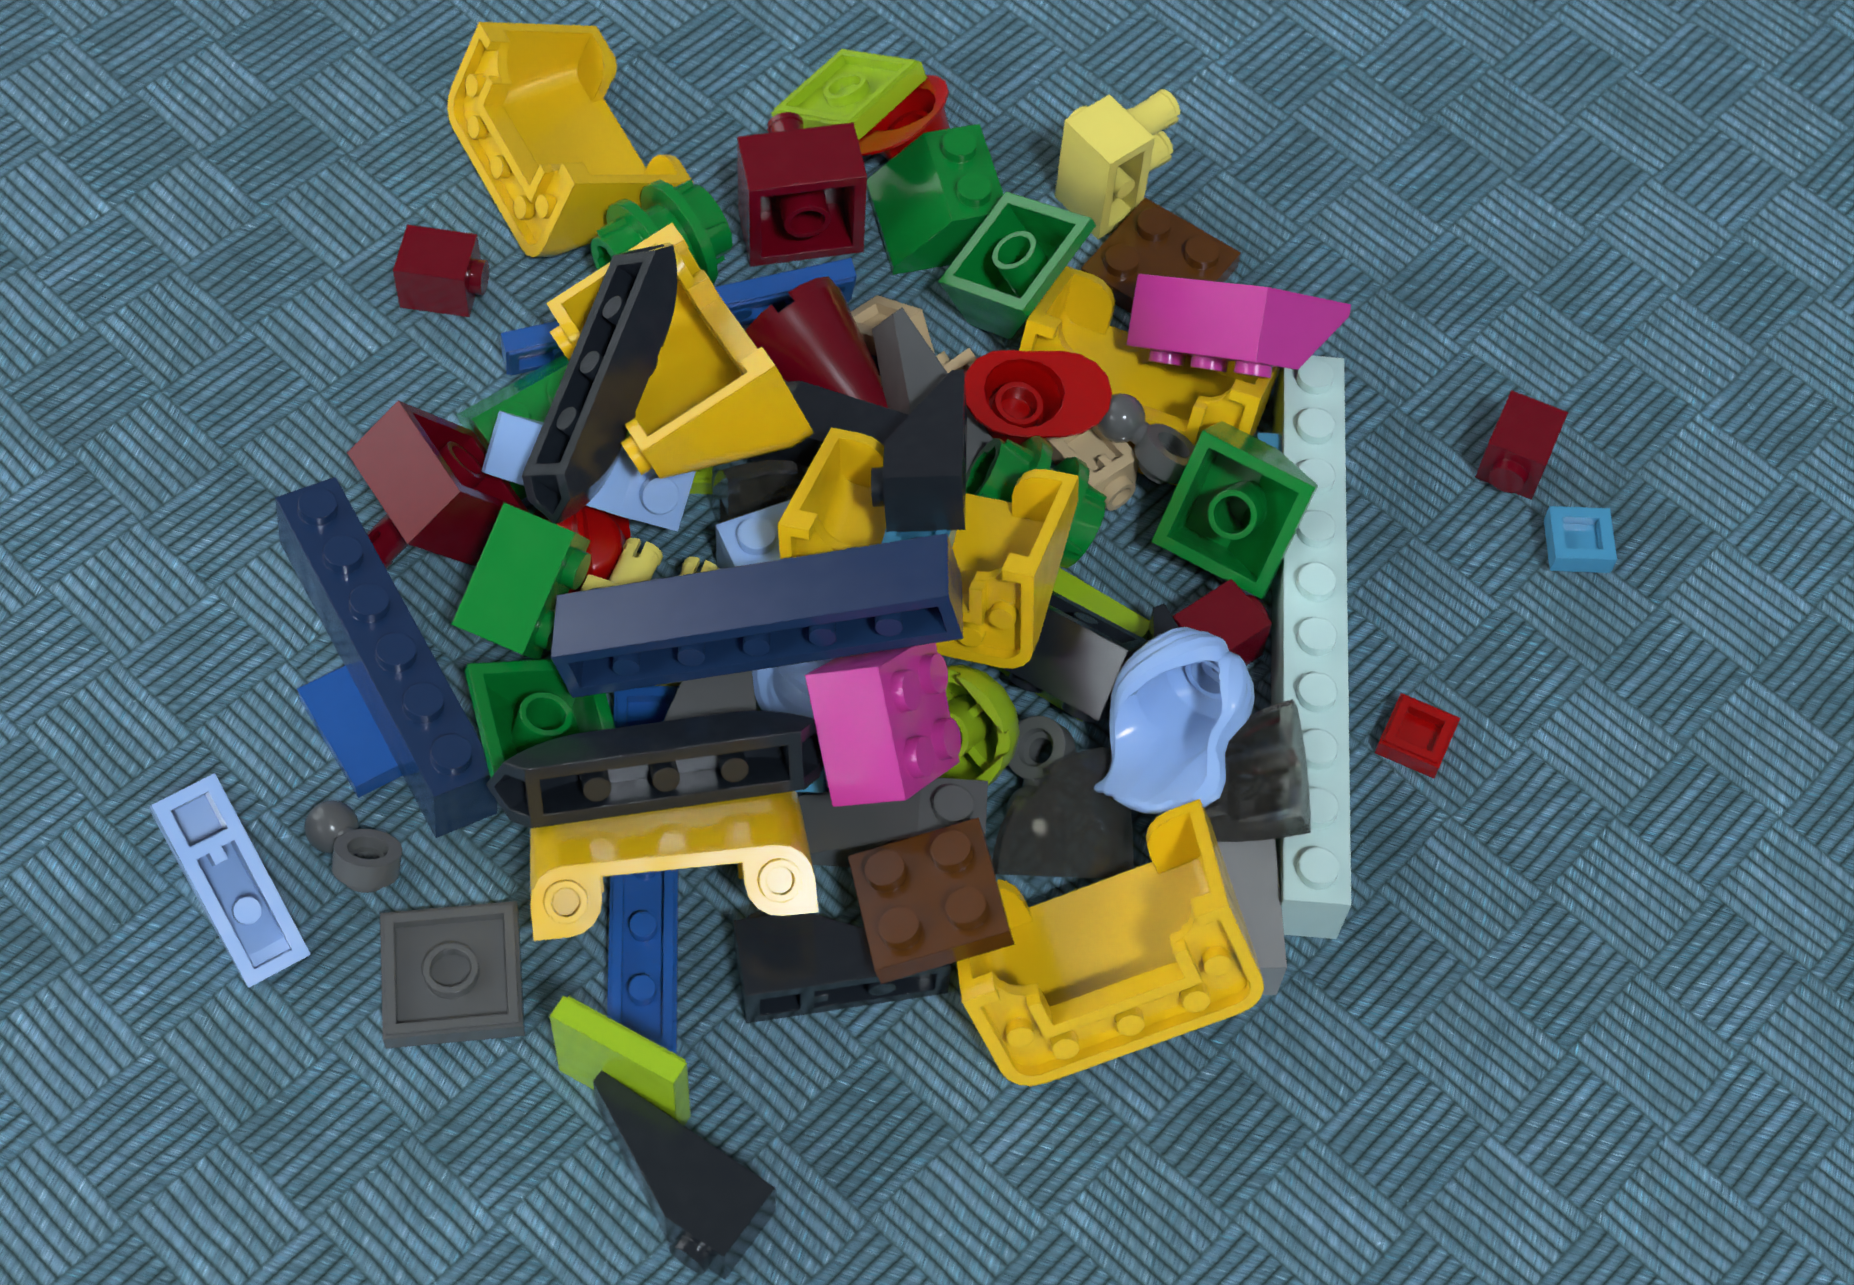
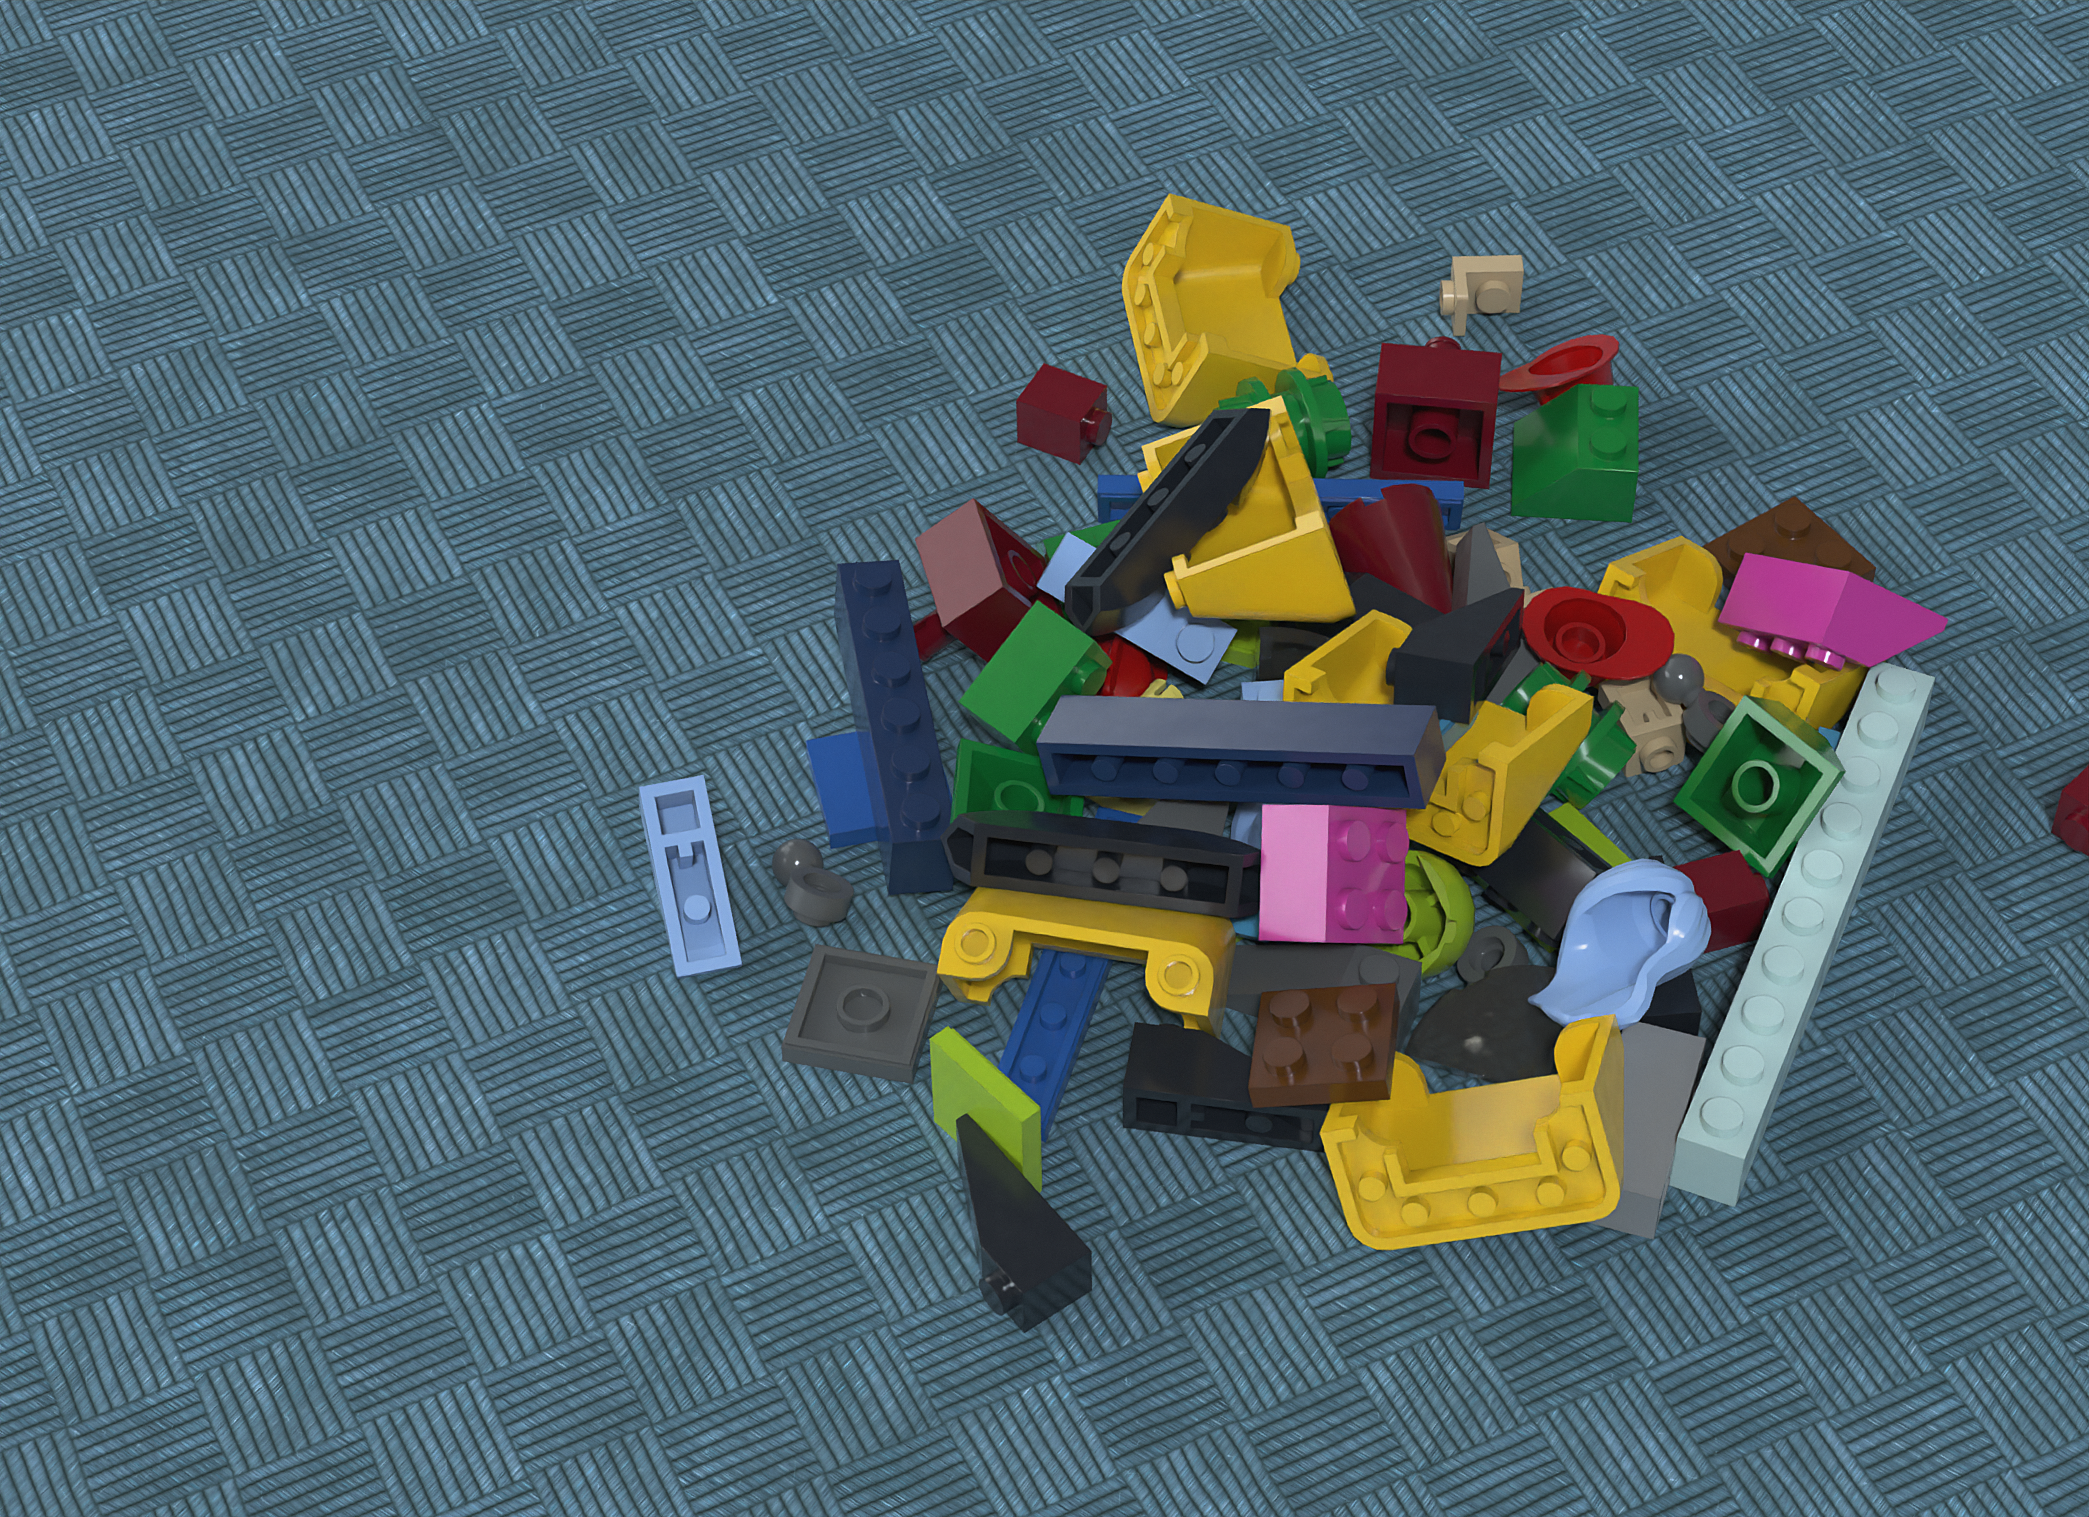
camera: 25 degrees right, 10 degrees down
(791, 48) = (1481, 287): none -> tan bracket
(854, 89) = (1531, 335): lime tile -> none
(1013, 262) = (1625, 513): green slope -> none
(1110, 155) = (1761, 446): light yellow brick -> none
(1265, 780) = (1692, 1024): clear smoke brick -> none
(1417, 735) = (1890, 1047): red tile -> none

